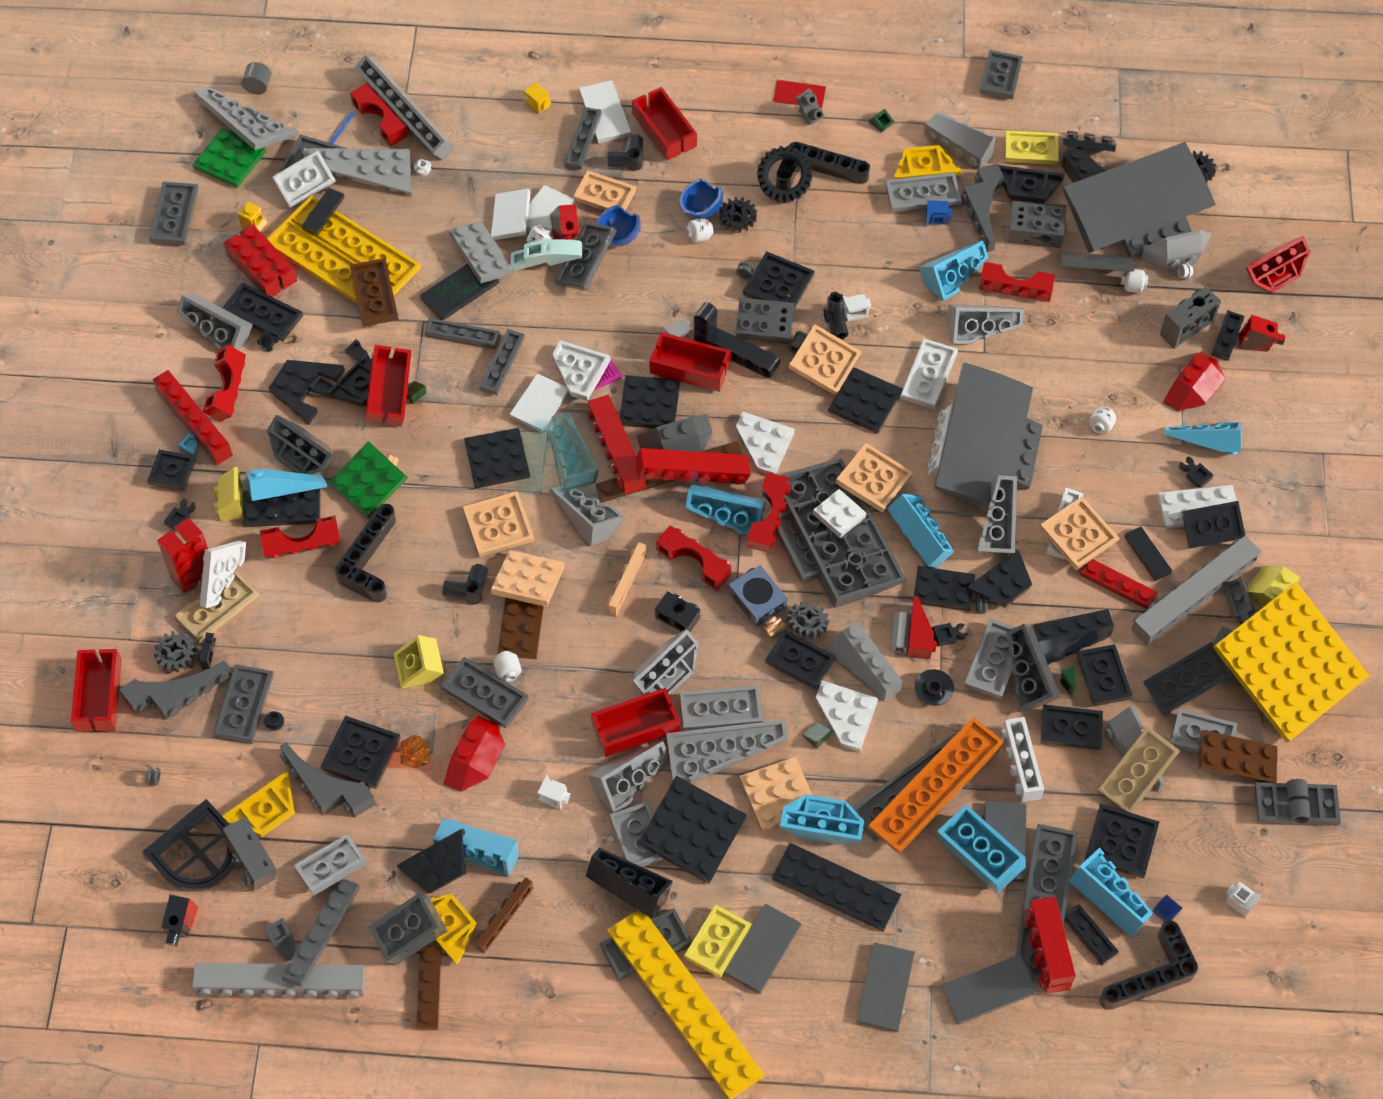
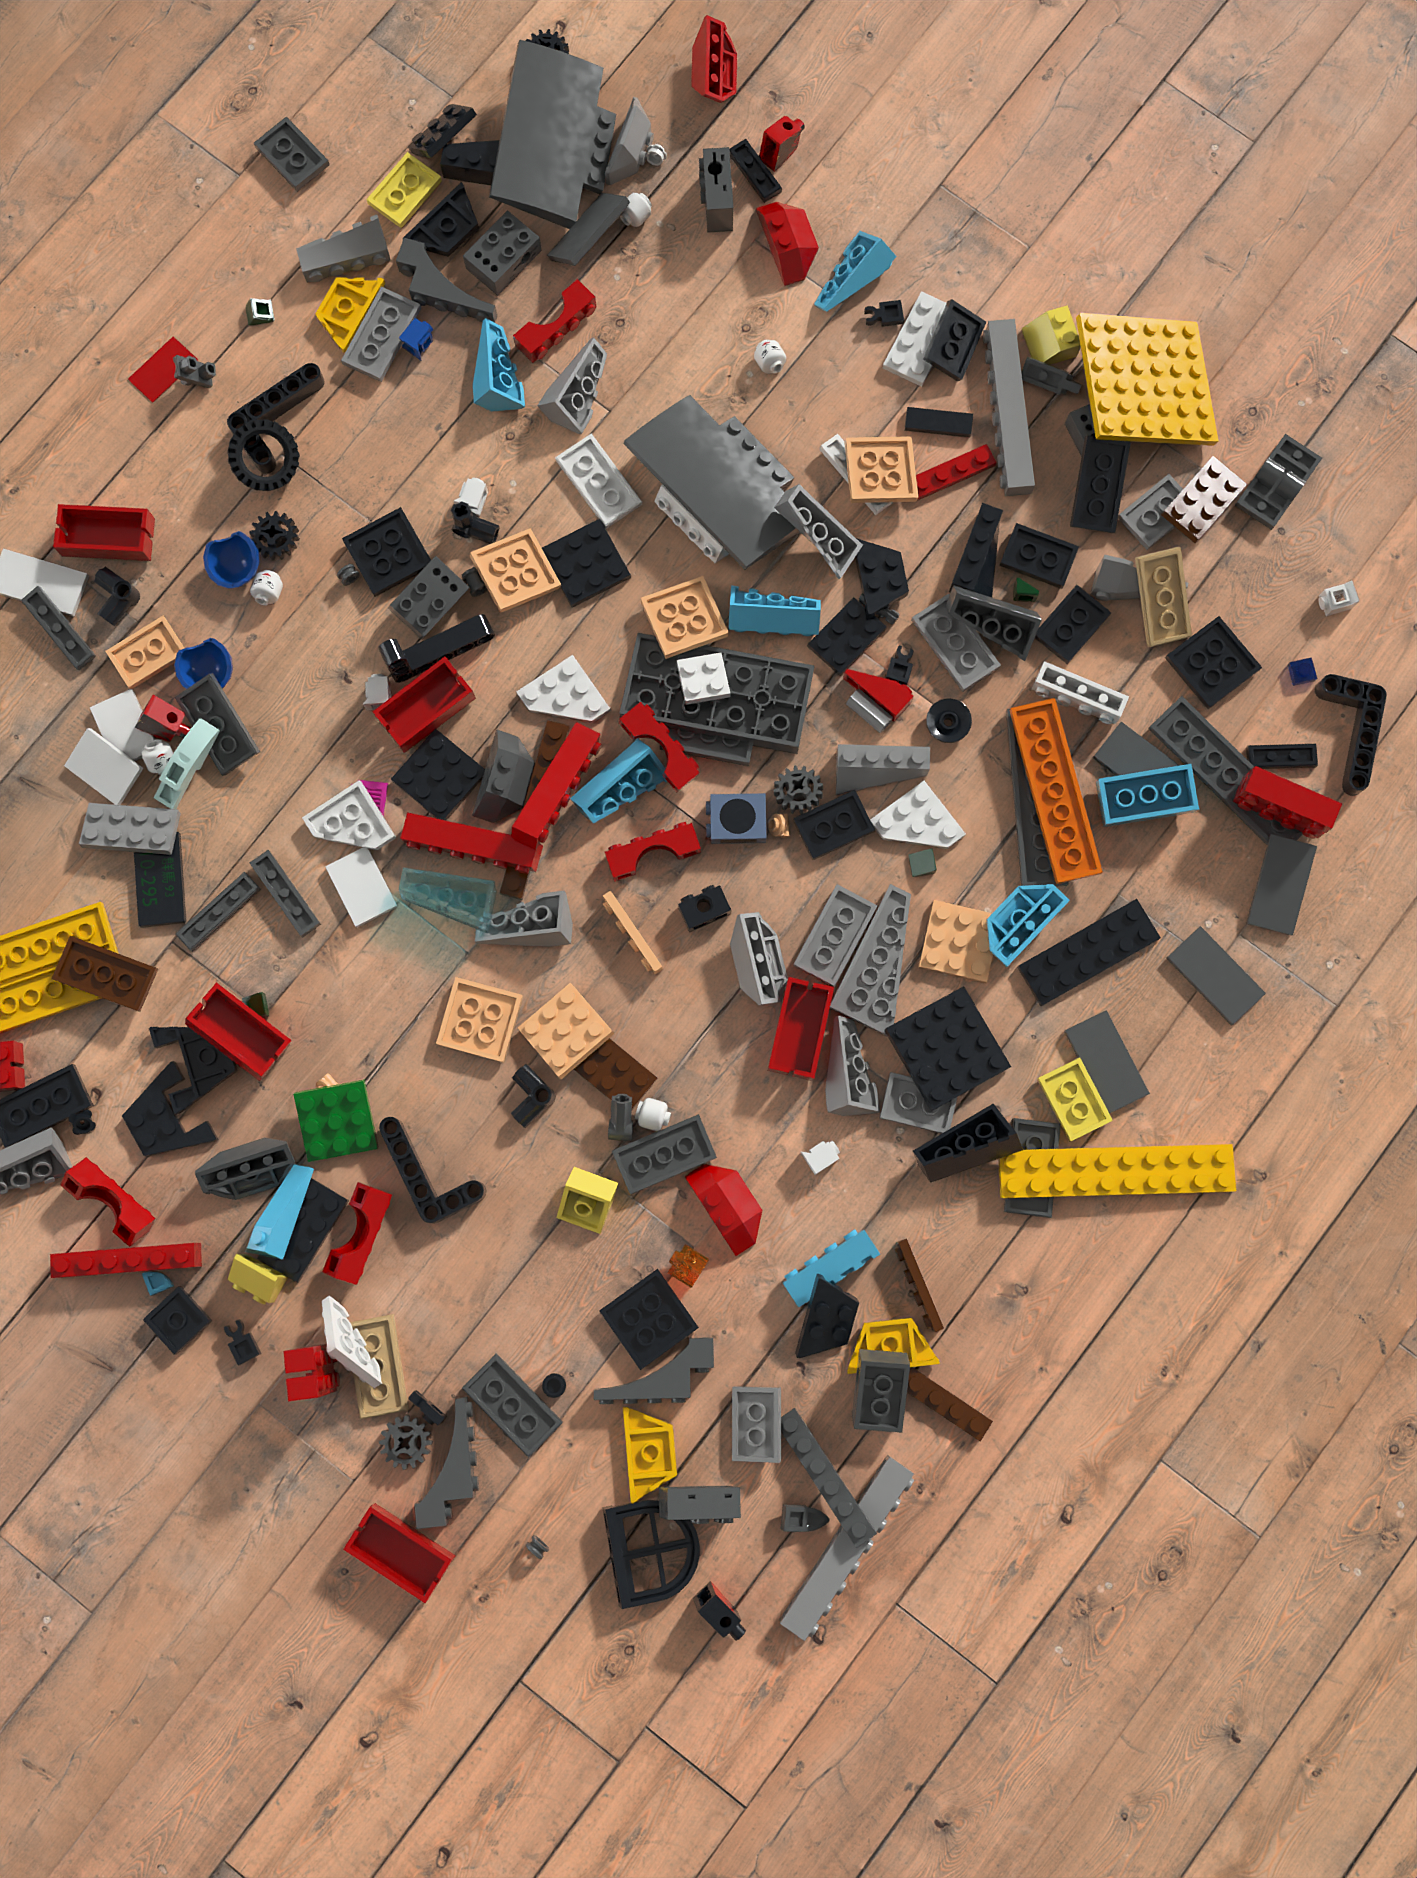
camera: 55 degrees left, 20 degrees up
(485, 651) = (620, 1123): none -> dark grey piece
(497, 458) = (397, 971): black plate -> none
(1111, 893) = (1260, 711): medium azure wedge -> none

